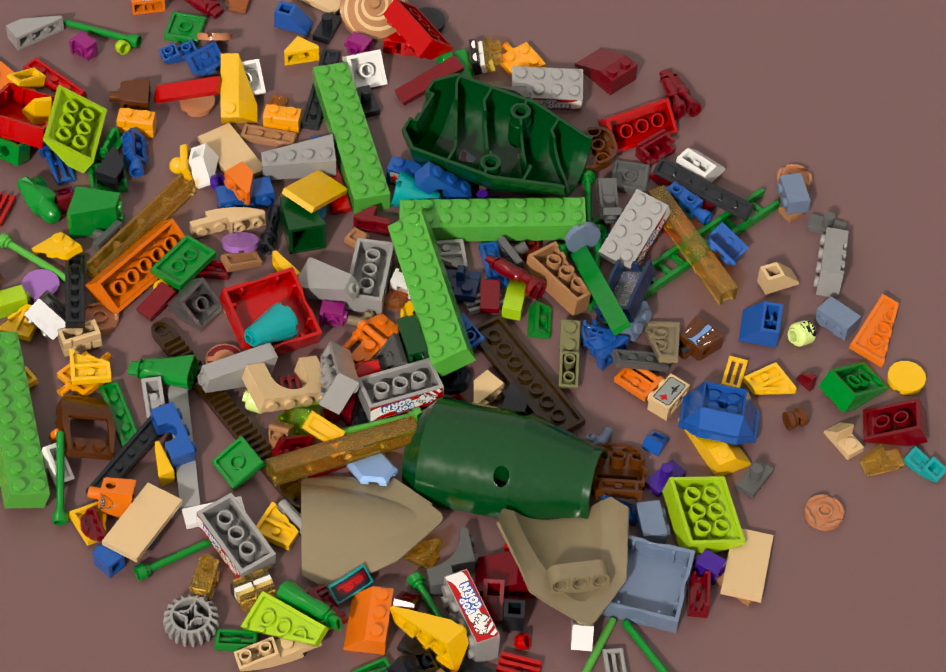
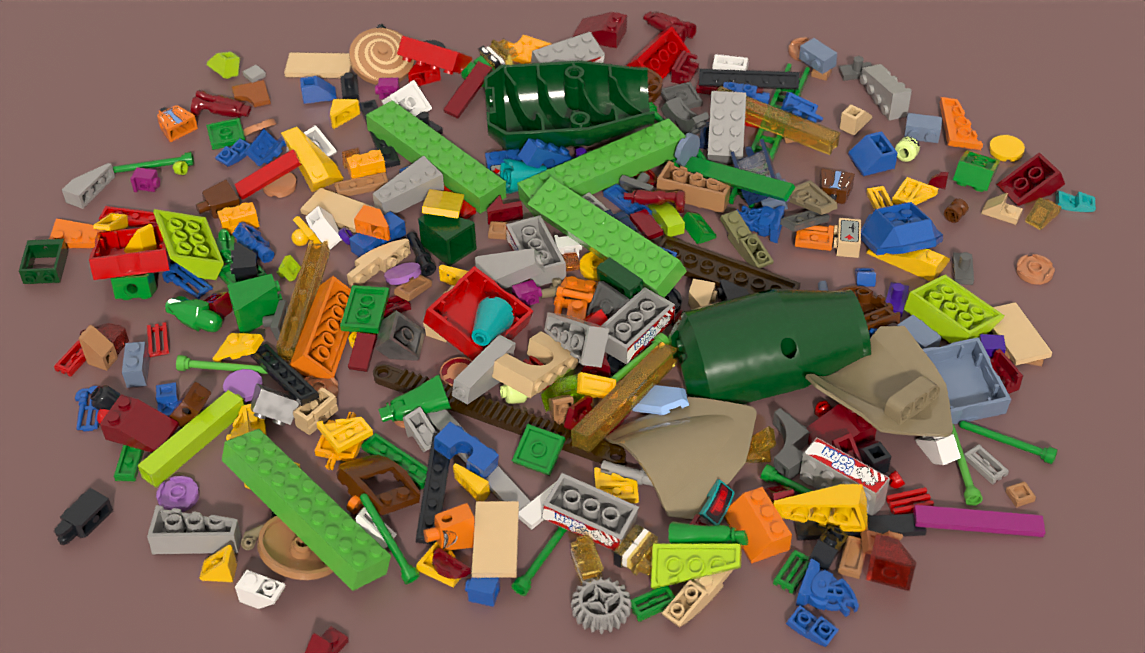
camera: 25 degrees left, 5 degrees down
(148, 191) = (289, 268): none -> lime tile

